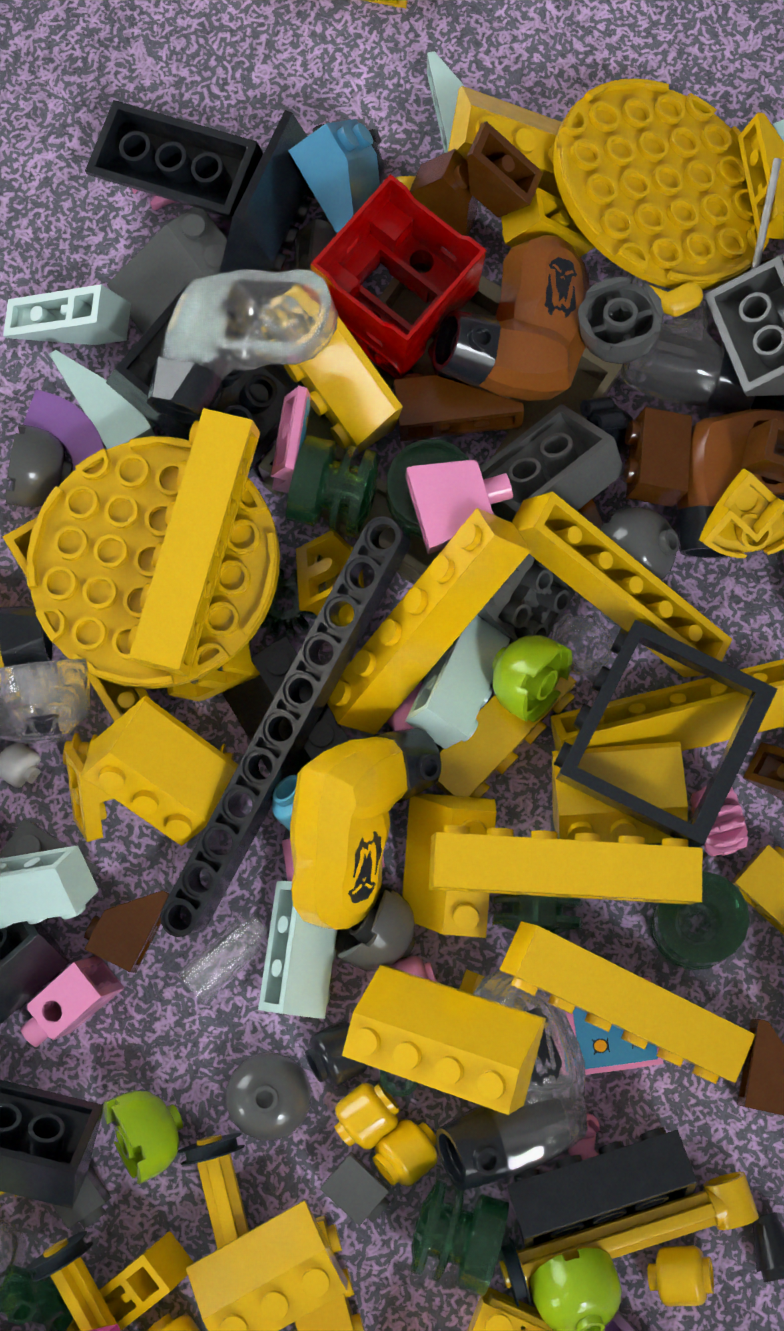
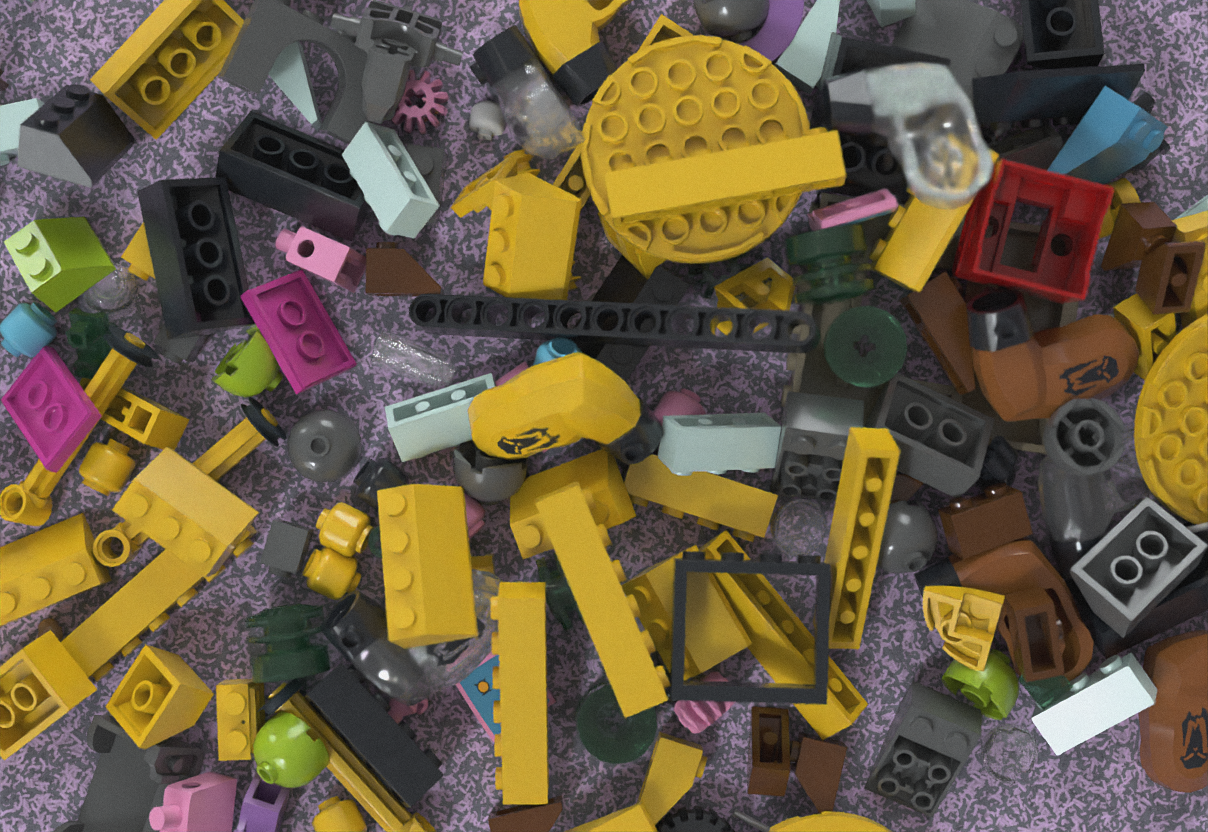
camera: 60 degrees right, 10 degrees up
(134, 1064) = (298, 331): none -> dark pink tile
(427, 621) = (751, 397): yellow brick -> none
(449, 494) = (857, 373): bright pink torso -> none
(528, 674) = (747, 497): lime cylinder -> none
(680, 299) = (1129, 477): yellow arm -> none

